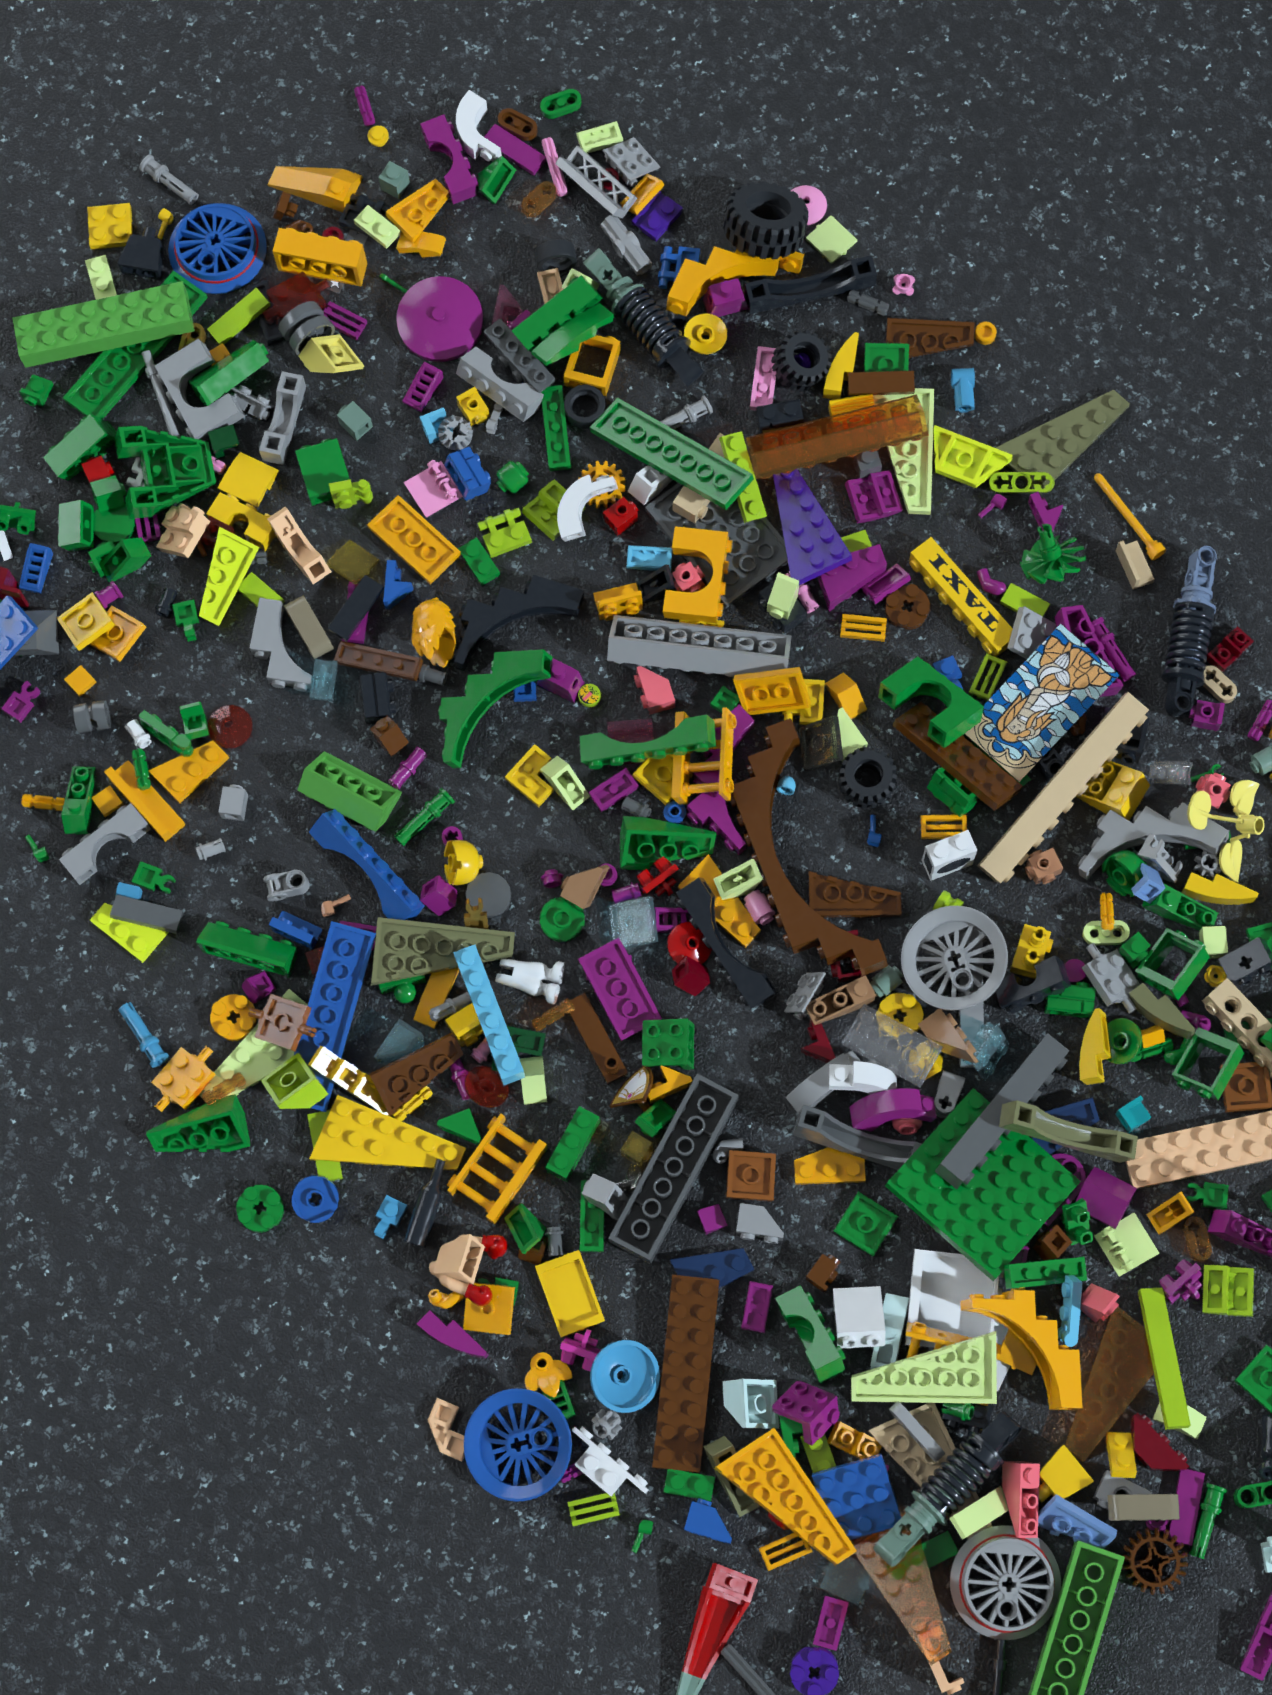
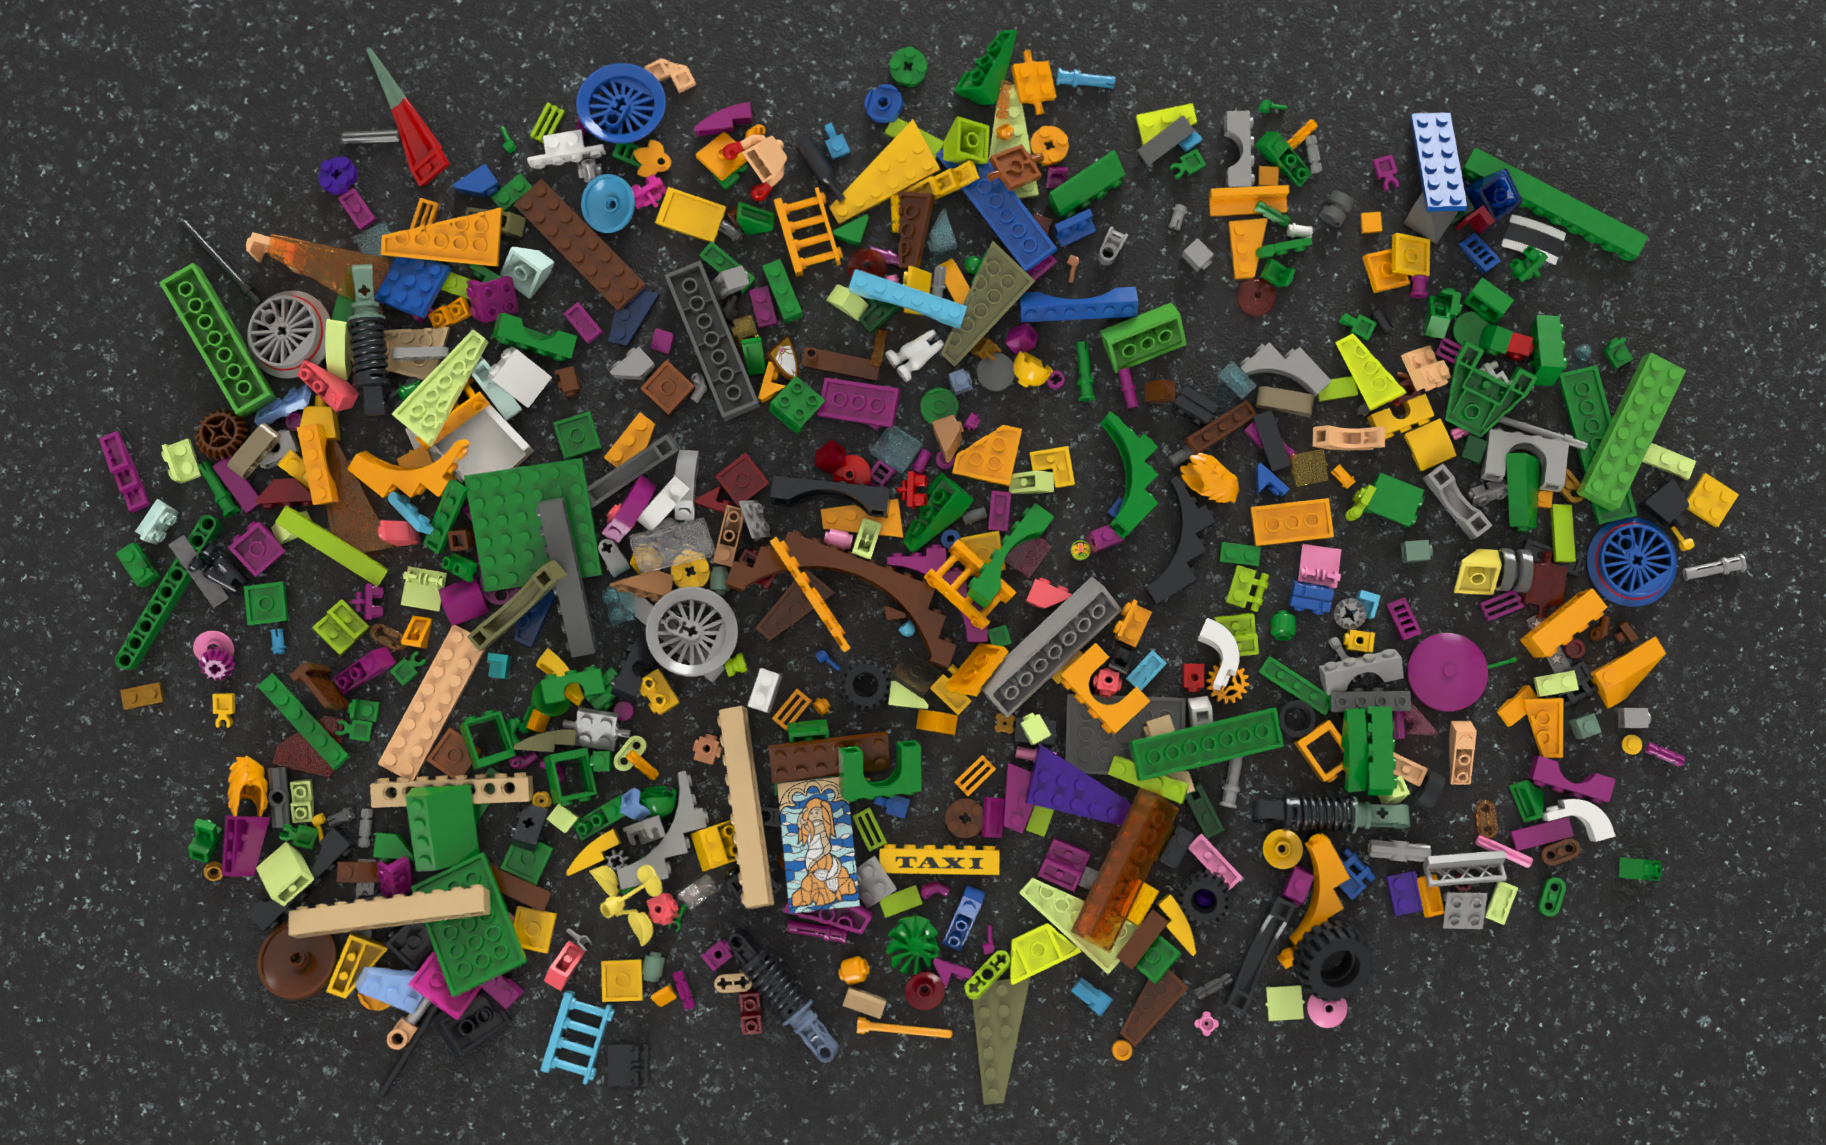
camera: 125 degrees right, 10 degrees up
(54, 777) = (1313, 154): none -> light grey axle
(58, 418) = (1583, 352): none -> clear light blue hinge
(254, 1063) = (1005, 131): none -> light orange plate
(337, 526) = (1345, 479): none -> light orange pin
(354, 149) = (1633, 718): none -> light grey brick
(479, 54) = (1640, 869): none -> green slope
(498, 258) = (1461, 752): none -> light nougat slope
(524, 916) = (960, 381): none -> sand blue brick
(570, 836) = (990, 457): none -> light orange plate
(602, 1152) = (763, 307): none -> magenta plate
(730, 416) = (1204, 812): none -> dark green plate
(778, 1037) = (742, 479): none -> dark red plate
(784, 804) = (893, 614): none -> reddish brown slope
(798, 632) = (1006, 728): none -> pearl gold plate
(830, 879) = (812, 594): none -> light orange wing
(918, 802) = (822, 706): none -> light orange plate
(988, 540) = (963, 917): none -> blue slope
(1081, 522) = (926, 998): none -> dark red dish
(1082, 1500) = (293, 420): none -> magenta plate
(1103, 1434) = (320, 482): none -> light orange arch
(1109, 1035) = (554, 686): none -> green arch
(1117, 592) = (854, 970): none -> light orange head
(1212, 1580) = (181, 461): none -> yellowish green bracket
(1227, 1431) = (256, 548): none -> magenta plate

